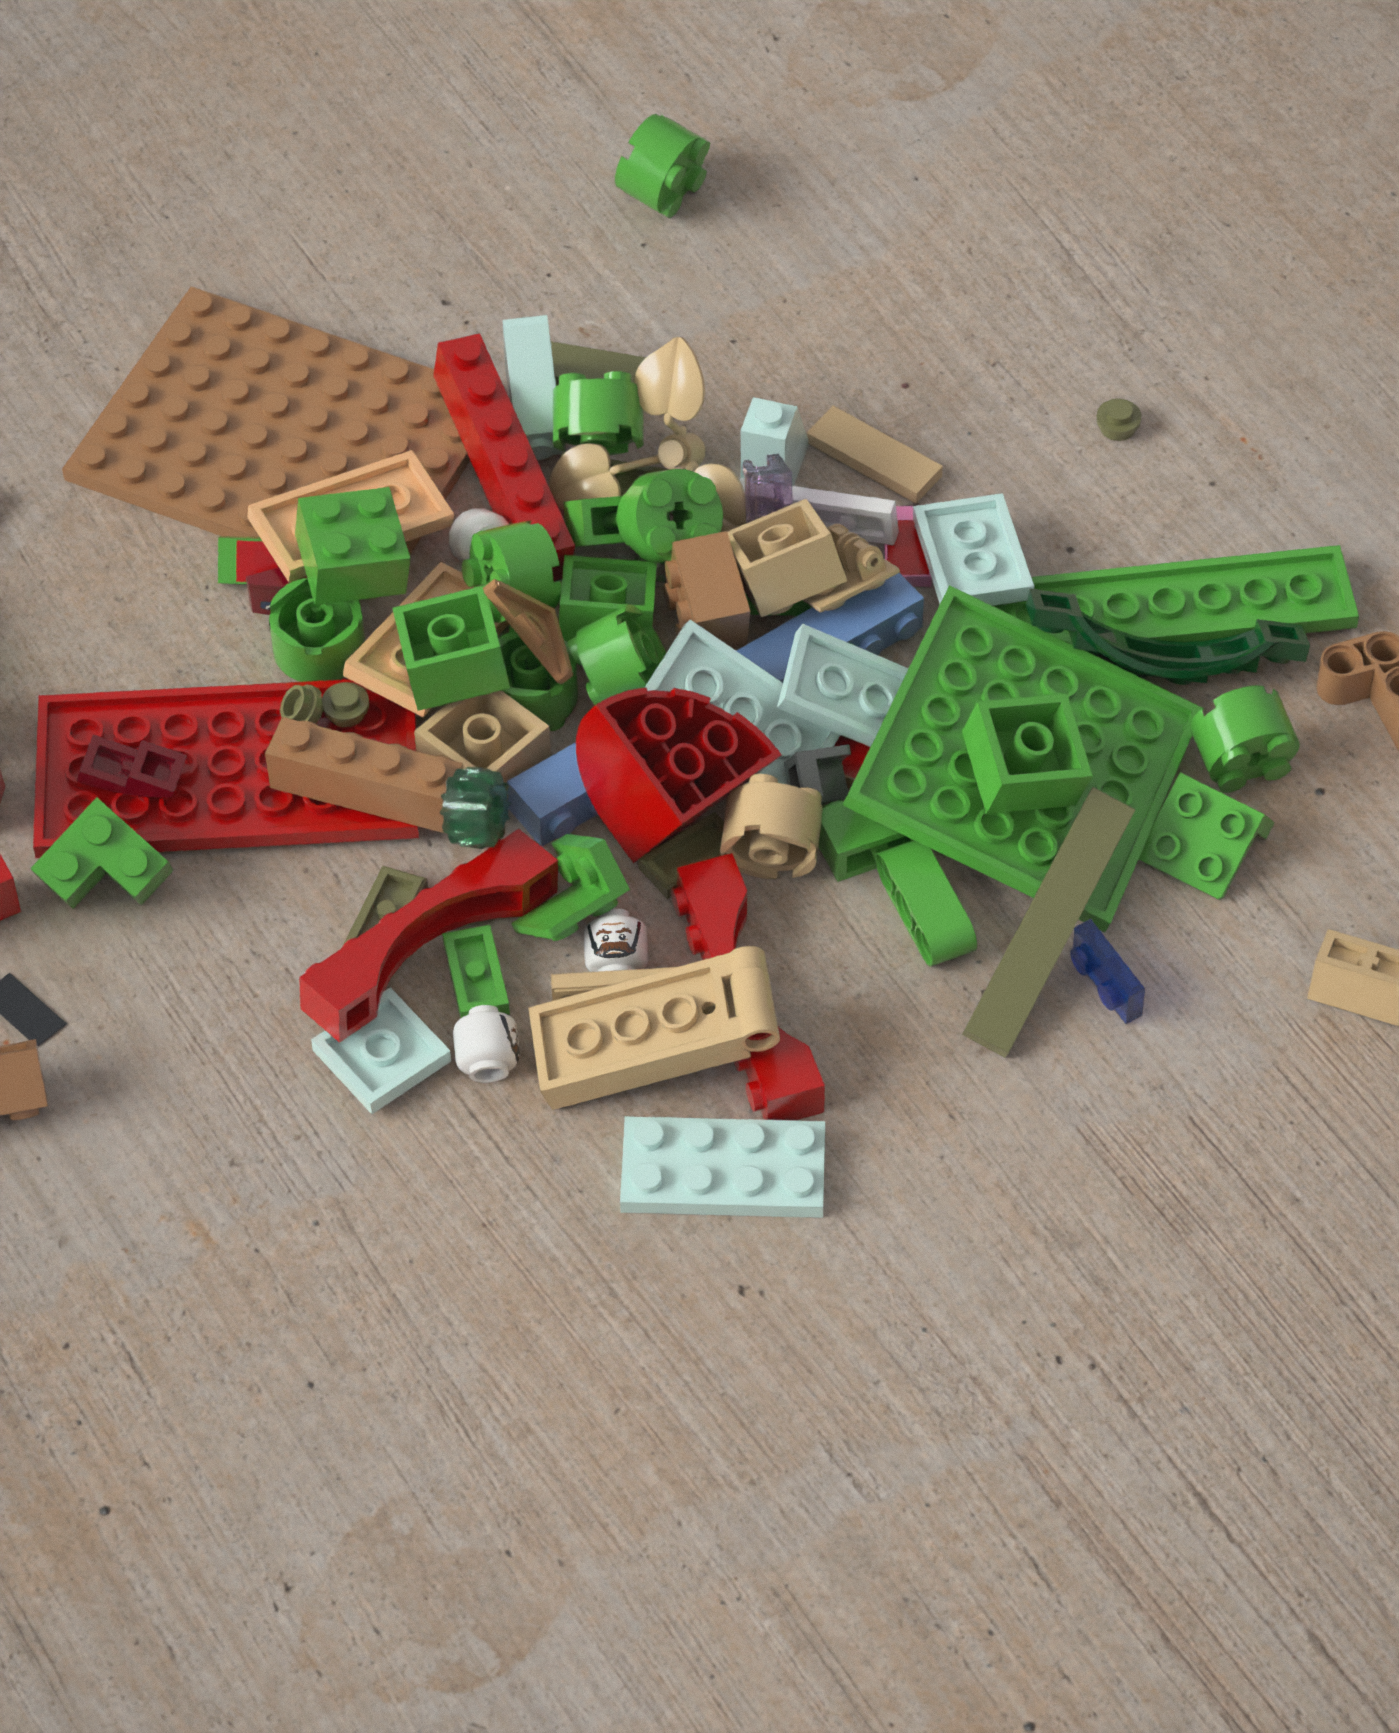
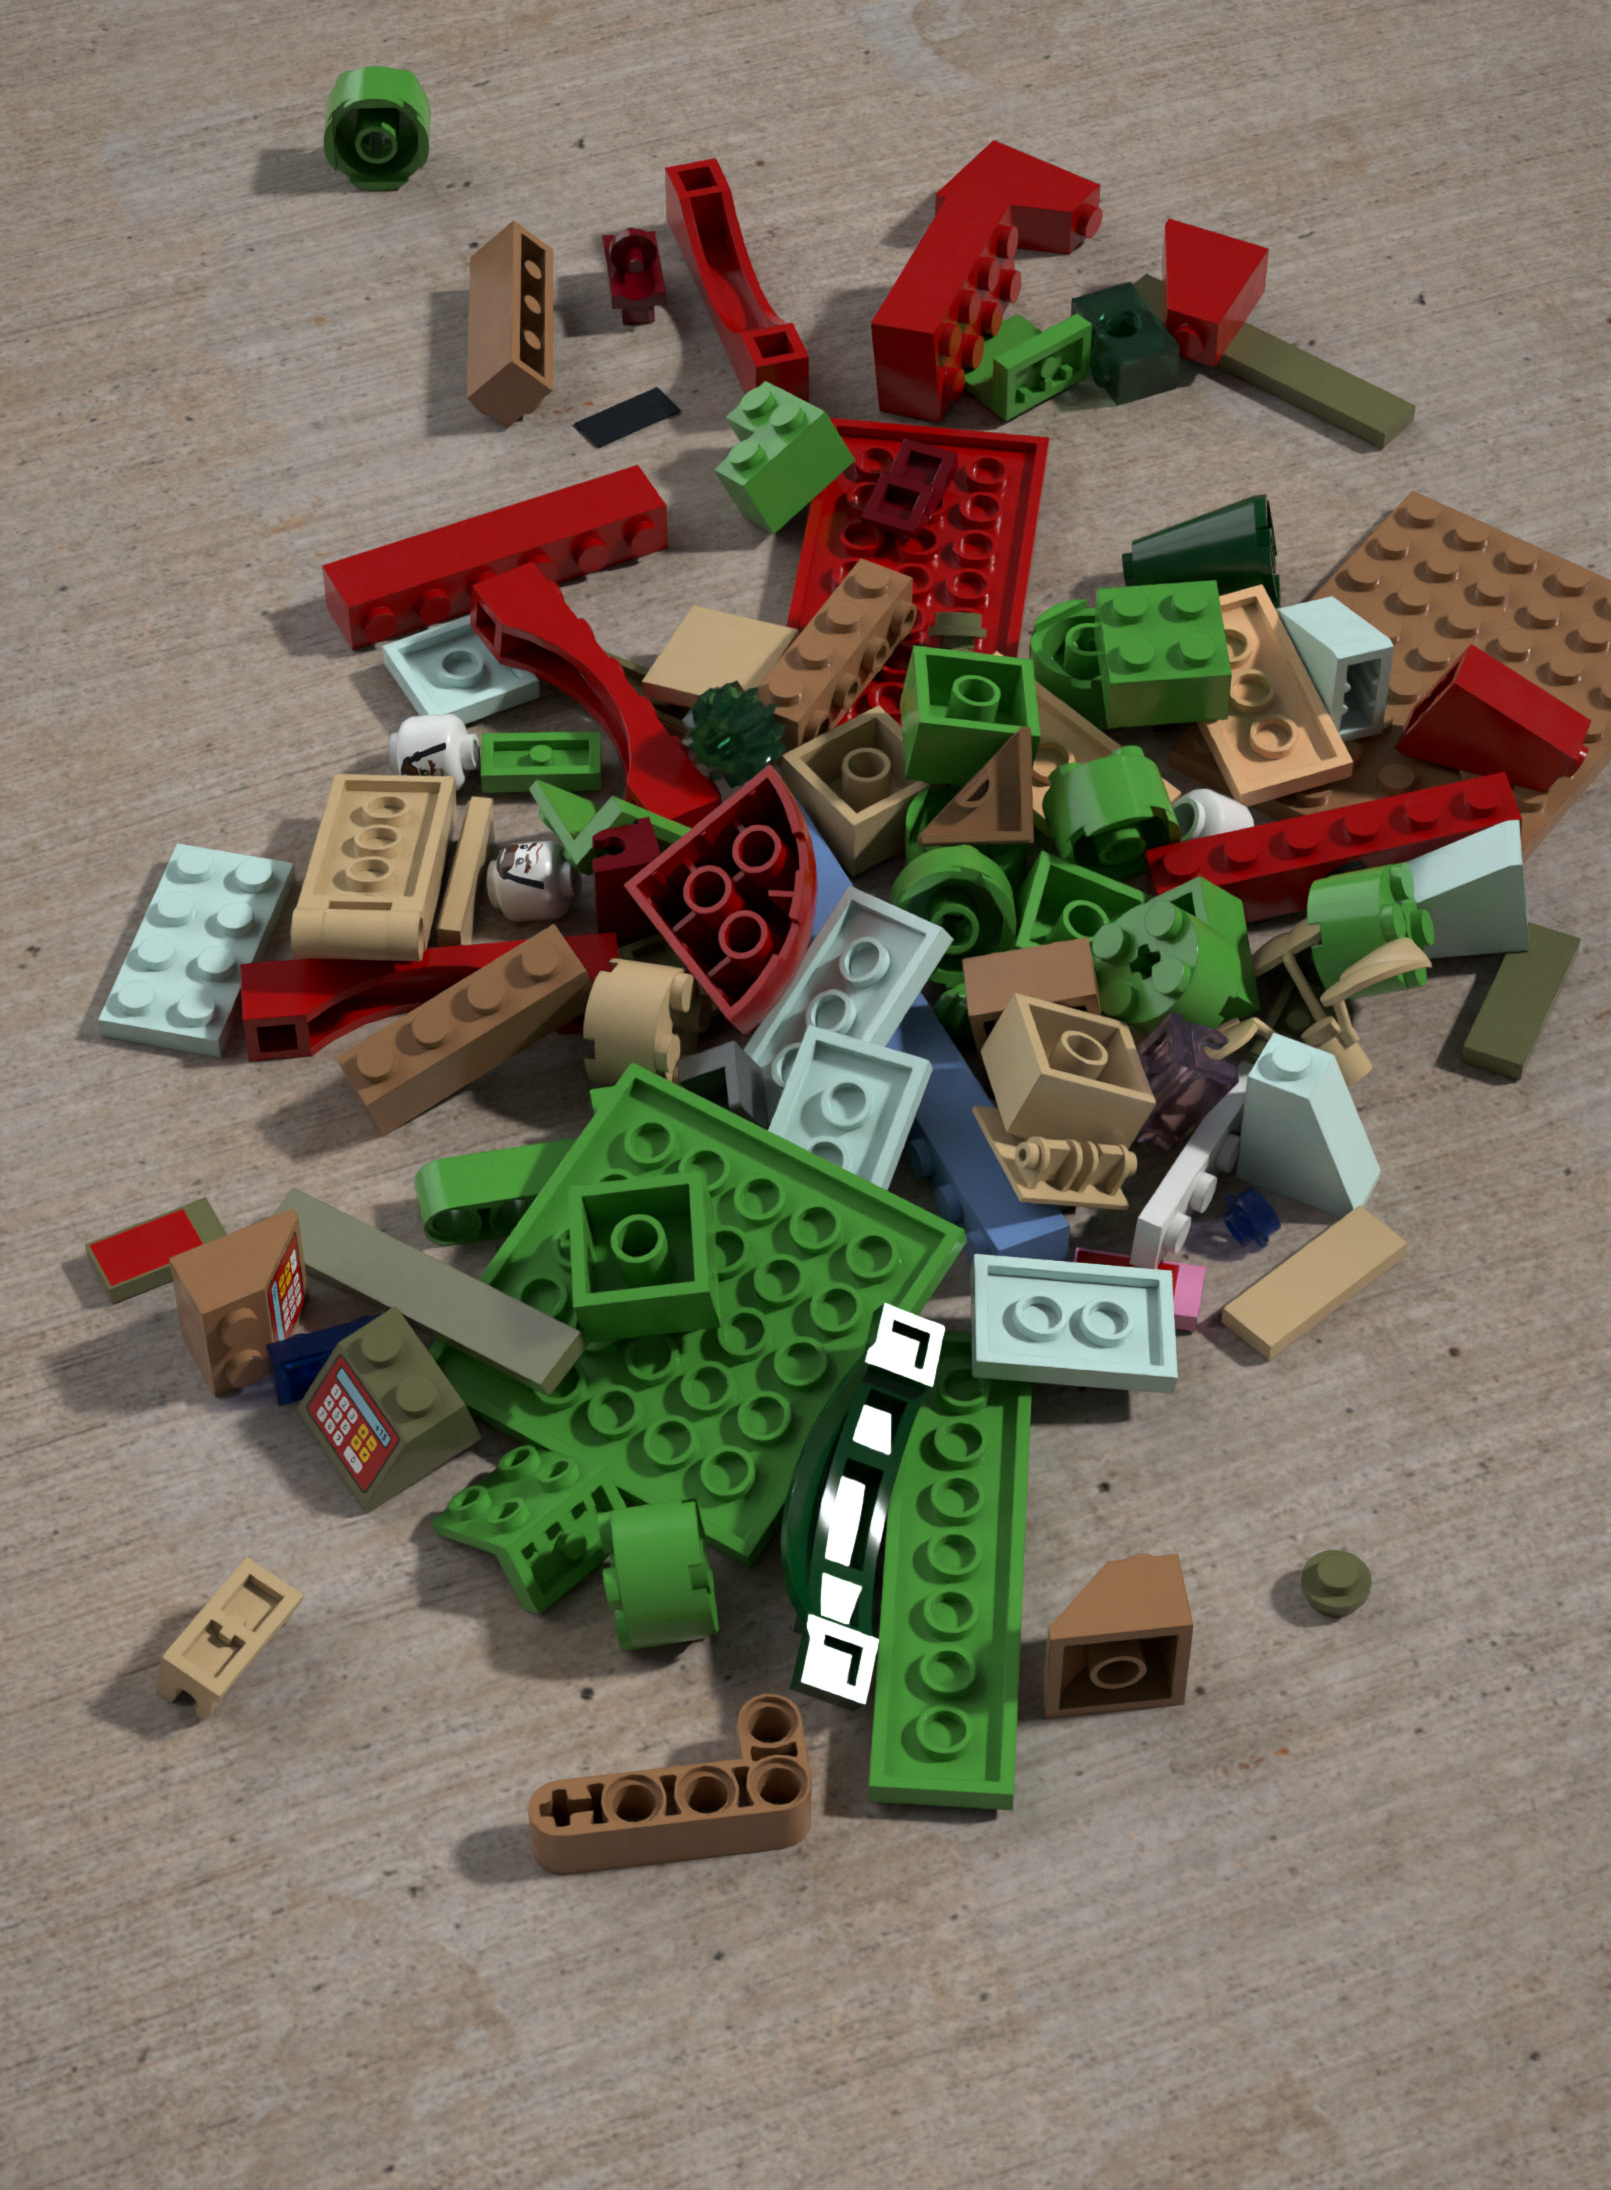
camera: 100 degrees right, 5 degrees down
(179, 564) = (1223, 545): none -> dark green cone
(243, 1050) = (434, 572): none -> red brick
(314, 452) = (1345, 662): none -> light aqua slope
(359, 378) = (1495, 722): none -> red slope
(363, 856) = (714, 651): none -> tan tile
(637, 860) = (614, 904): none -> dark red hinge
(806, 932) = (467, 1030): none -> medium nougat brick
(835, 481) = (1250, 1218): none -> clear blue plate
(1032, 1115) = (140, 1254): none -> red tile
(1094, 1018) = (241, 1297): none -> medium nougat slope
(1158, 919) = (385, 1411): none -> olive slope
(1220, 494) = (1121, 1641): none -> medium nougat slope

